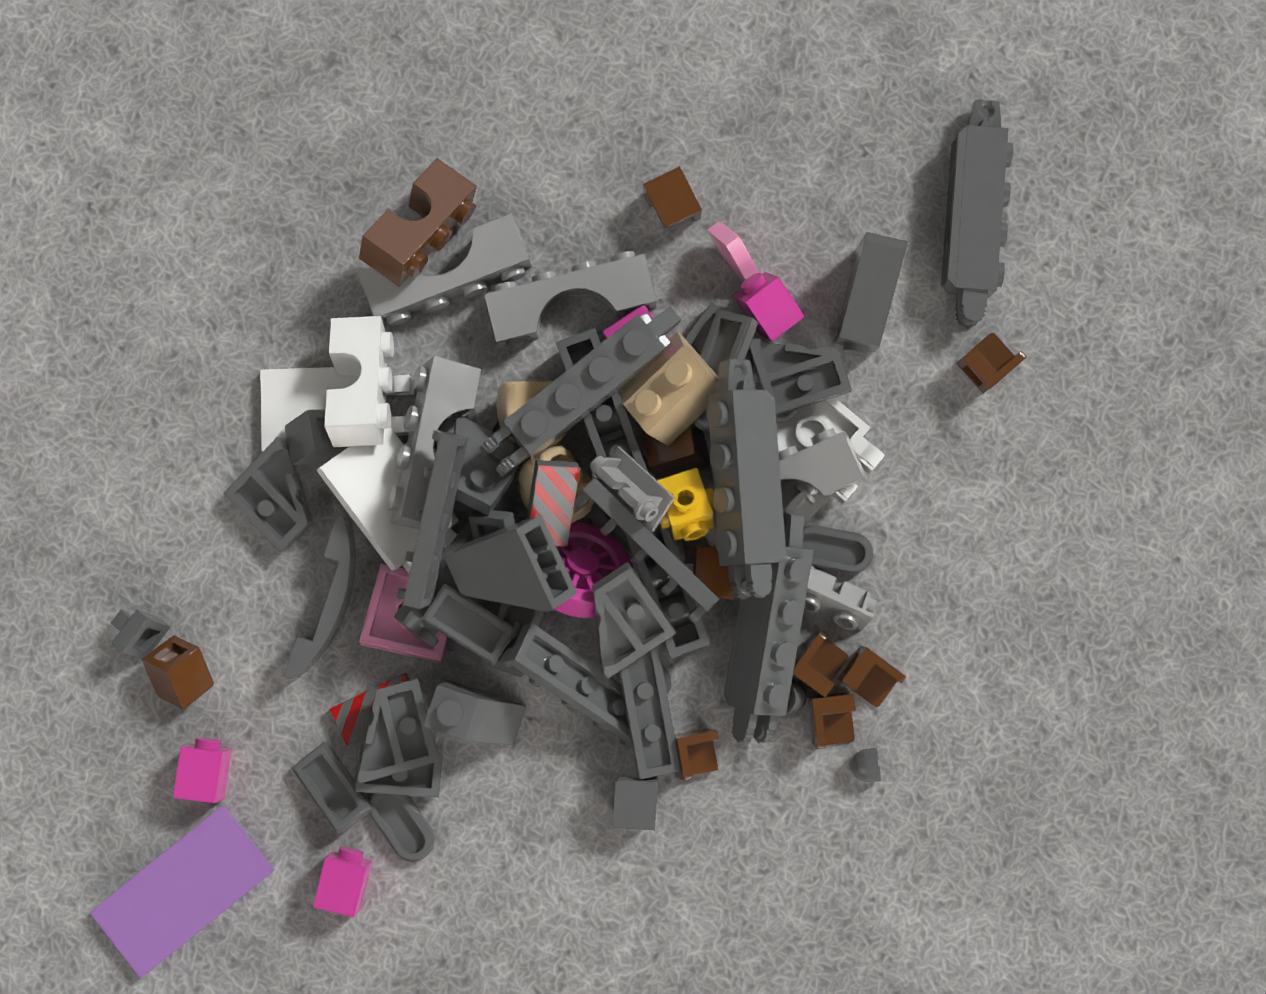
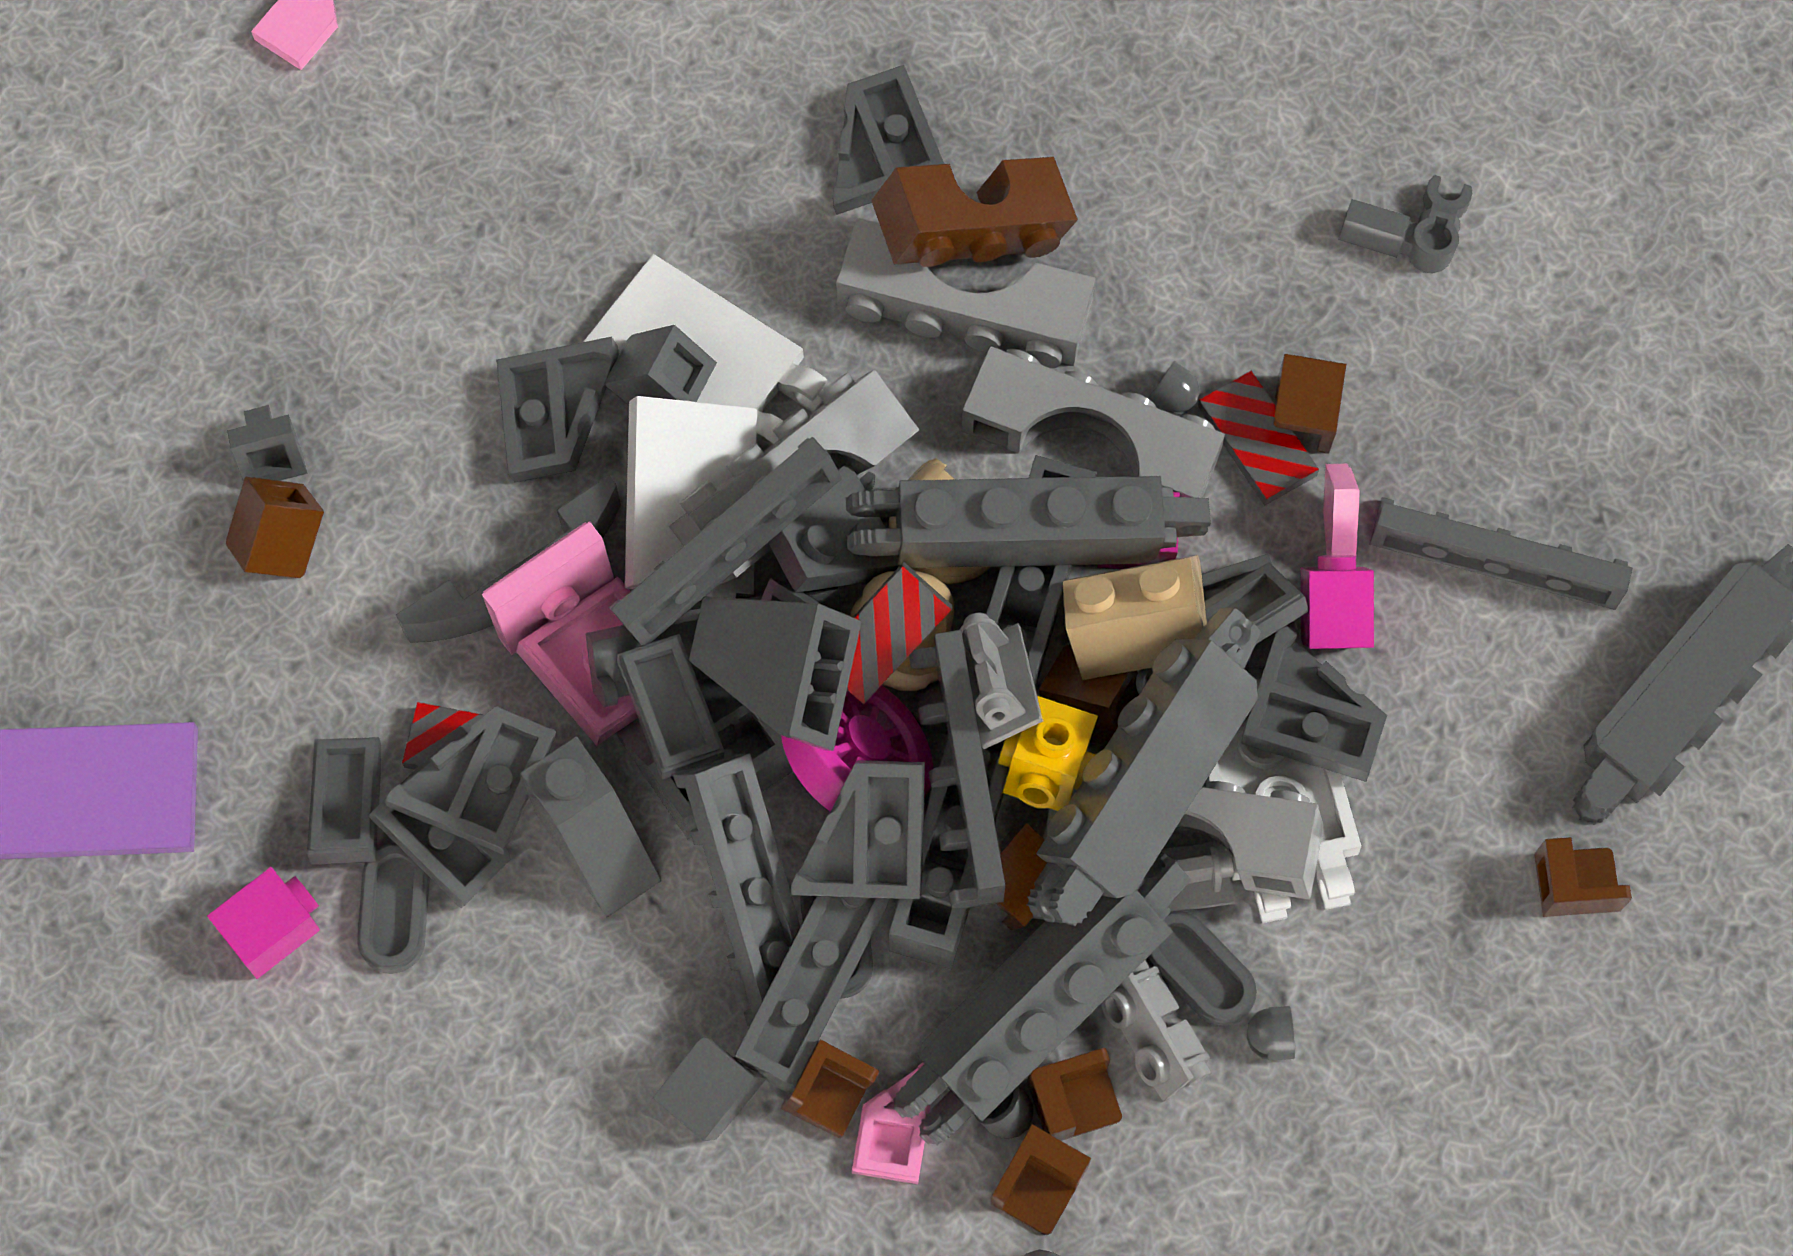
camera: 35 degrees right, 15 degrees down
(202, 771) = (208, 662): dark pink brick -> none
(335, 212) = (880, 132): none -> dark grey wing
(352, 603) = (548, 585): none -> bright pink plate
(359, 411) = (738, 367): white arch -> none
(598, 243) = (1176, 390): none -> dark grey hinge
(645, 234) = (1265, 454): none -> tile
(670, 57) = (1427, 244): none -> dark grey bar
(740, 758) = (888, 1143): none -> bright pink tile
(830, 213) = (1500, 555): none -> dark grey hinge
(870, 293) = (1479, 677): dark grey slope -> none
(870, 676) = (1131, 1163): reddish brown panel -> none
(893, 557) = (1272, 1034): none -> dark grey hinge

